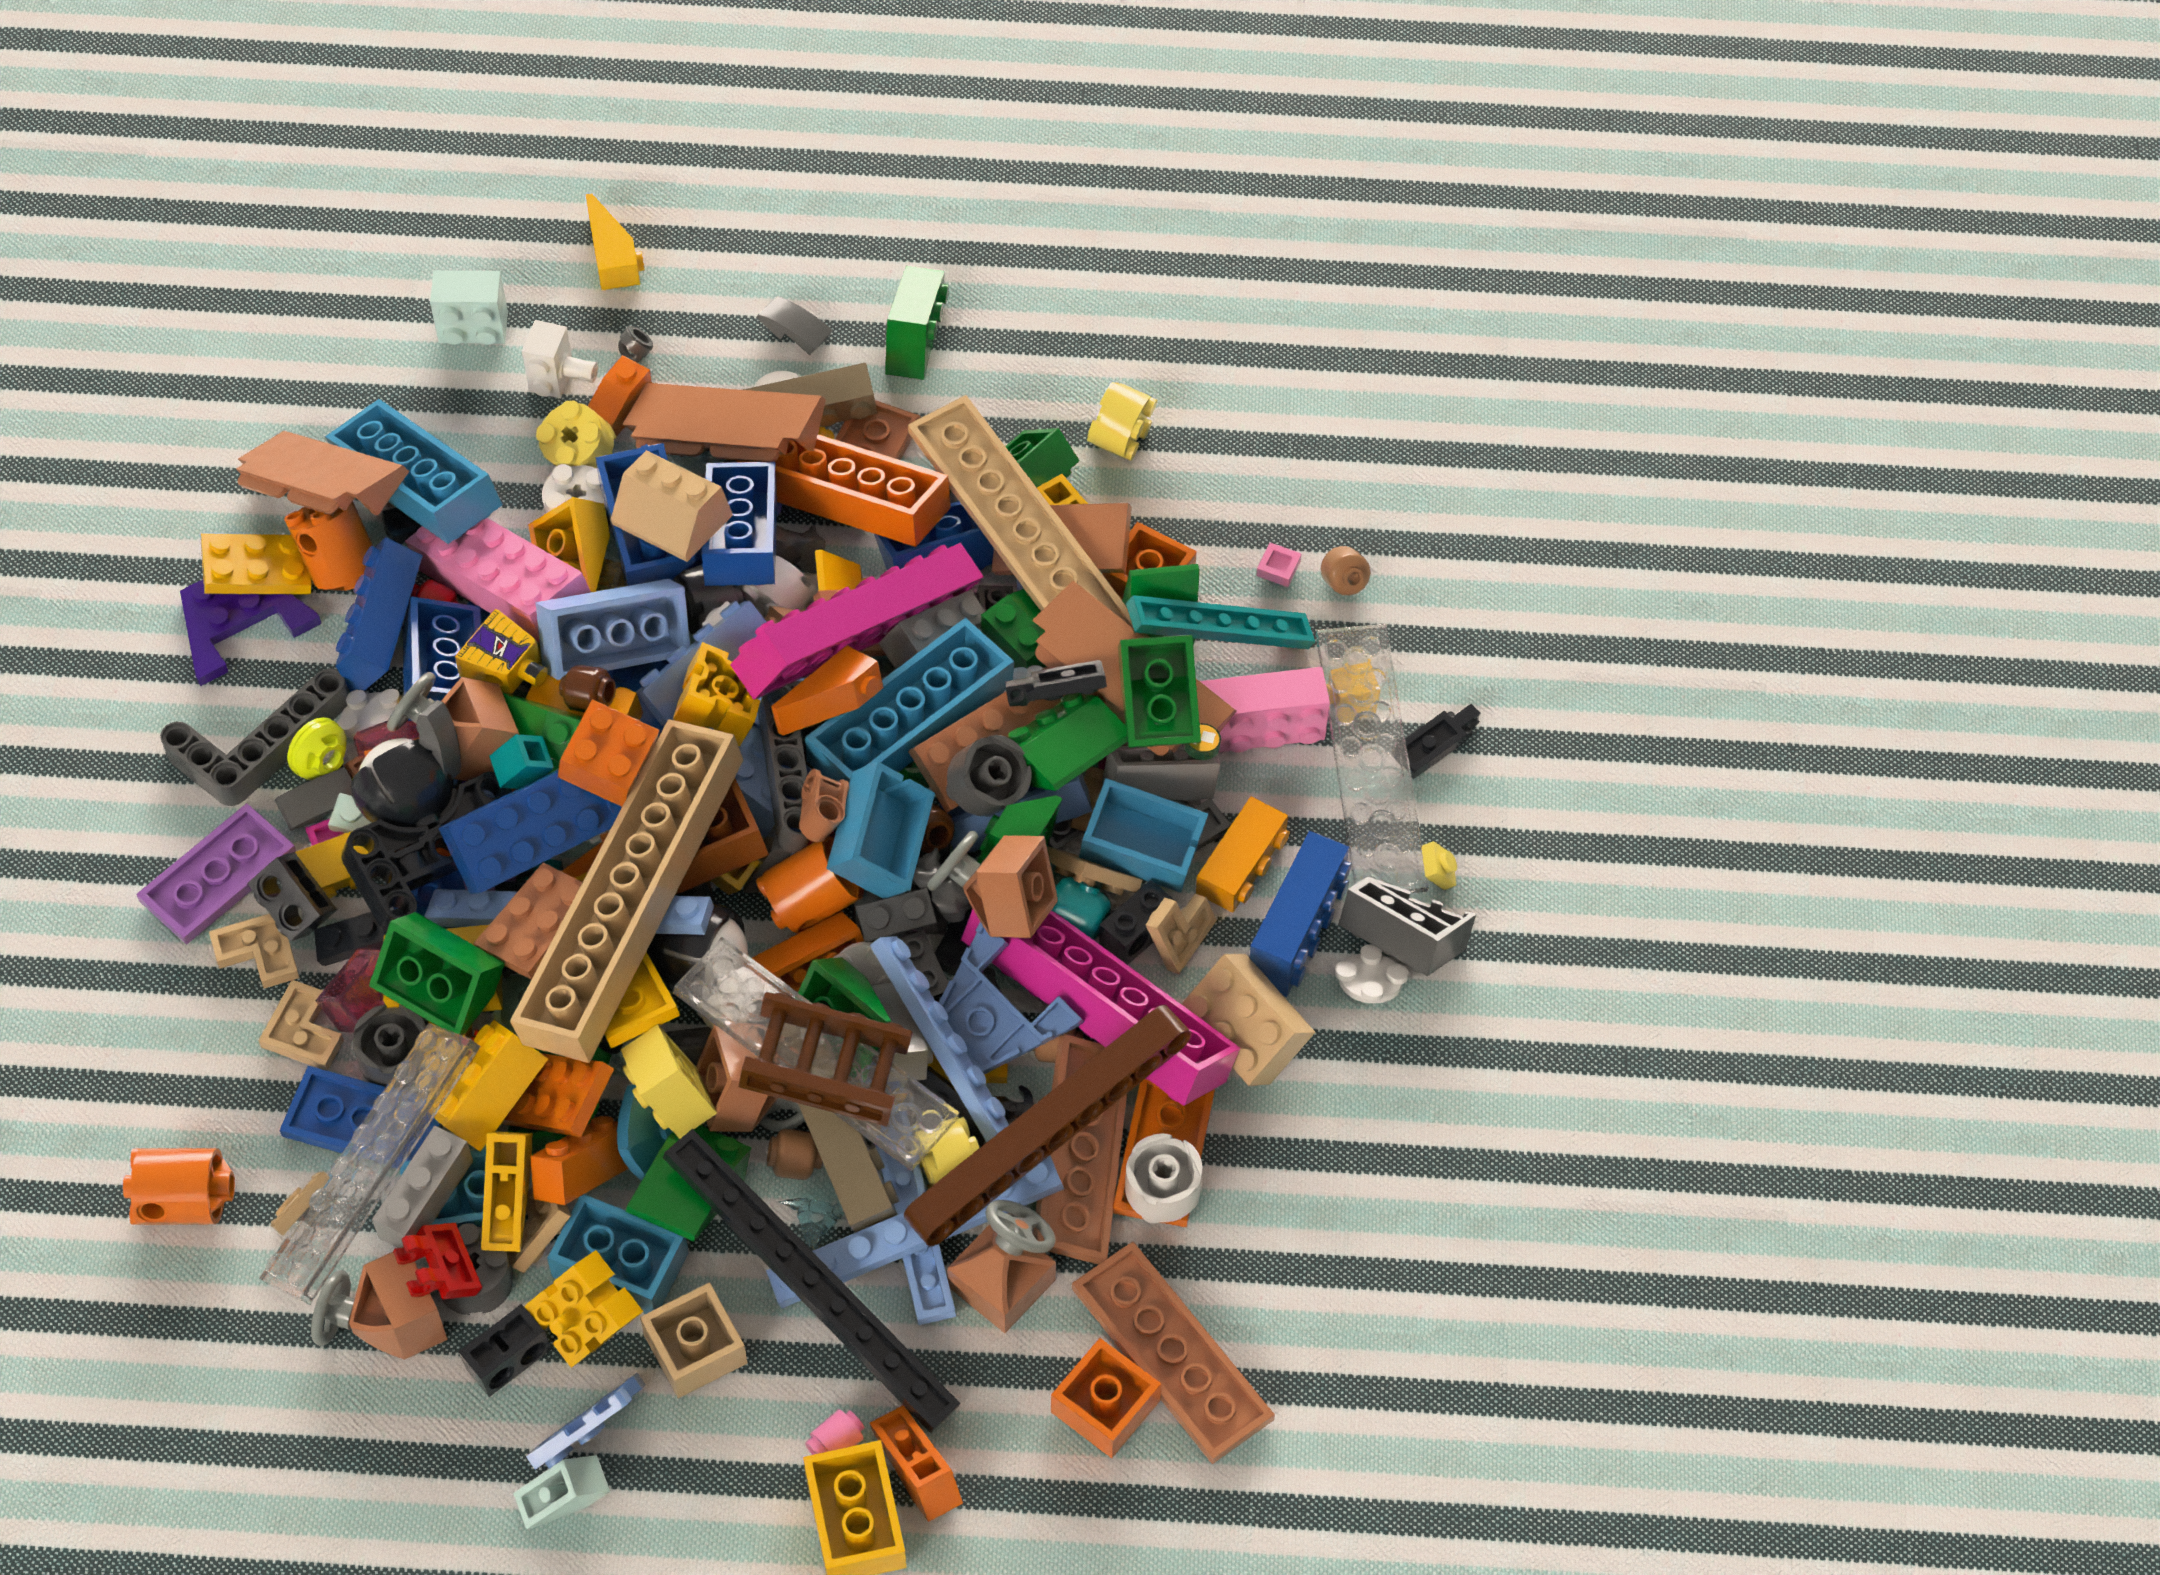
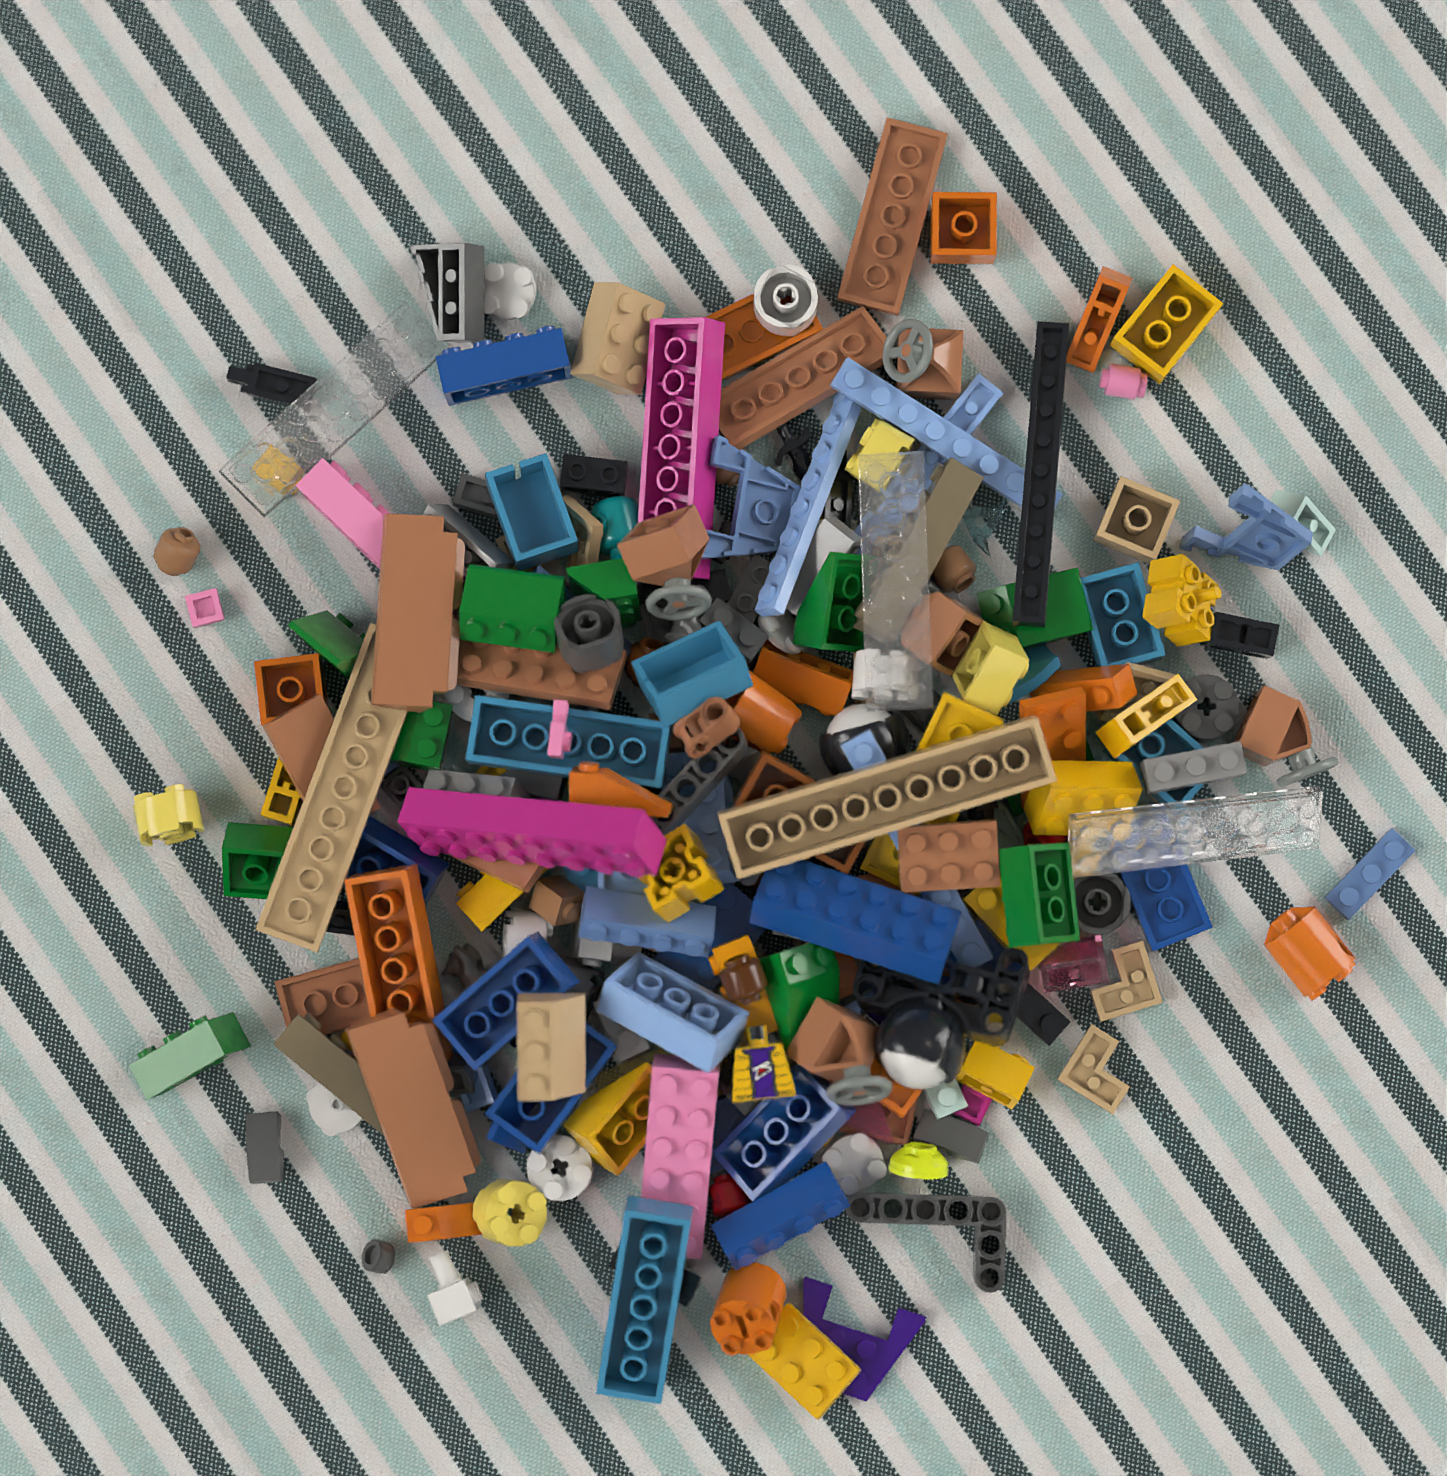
camera: 125 degrees left, 25 degrees up
(195, 1307) = (1369, 874): none -> medium blue plate
(214, 873) = (1063, 1154): medium lavender plate -> none
(296, 1204) = (1254, 866): tan tile -> none
(298, 890) = (1049, 1068): black brick -> none
(319, 474) = (705, 1362): nougat slope -> none
(439, 735) = (874, 1038): dark grey slope -> none
(448, 1262) = (1226, 708): red plate -> none
(469, 307) = (455, 1406): light aqua brick -> none
(521, 761) = (838, 974): teal brick -> none
(607, 752) = (801, 894): orange brick -> none
(614, 249) = (304, 1350): yellow slope -> none
(817, 1091) = (920, 532): reddish brown fence -> none
(918, 684) = (559, 738): none -> bright pink plate
(1047, 1125) = (819, 388): reddish brown beam -> none
(1056, 682) = (472, 643): black hinge -> none
(1159, 691) = (424, 565): green slope -> none
(1179, 931) = (586, 441): tan plate -> none
(1209, 743) = (435, 512): tile -> none
(1220, 622) = (309, 591): teal plate -> none
(1242, 855) = (478, 447): light orange brick -> none
(1439, 865) = (381, 306): light yellow plate -> none

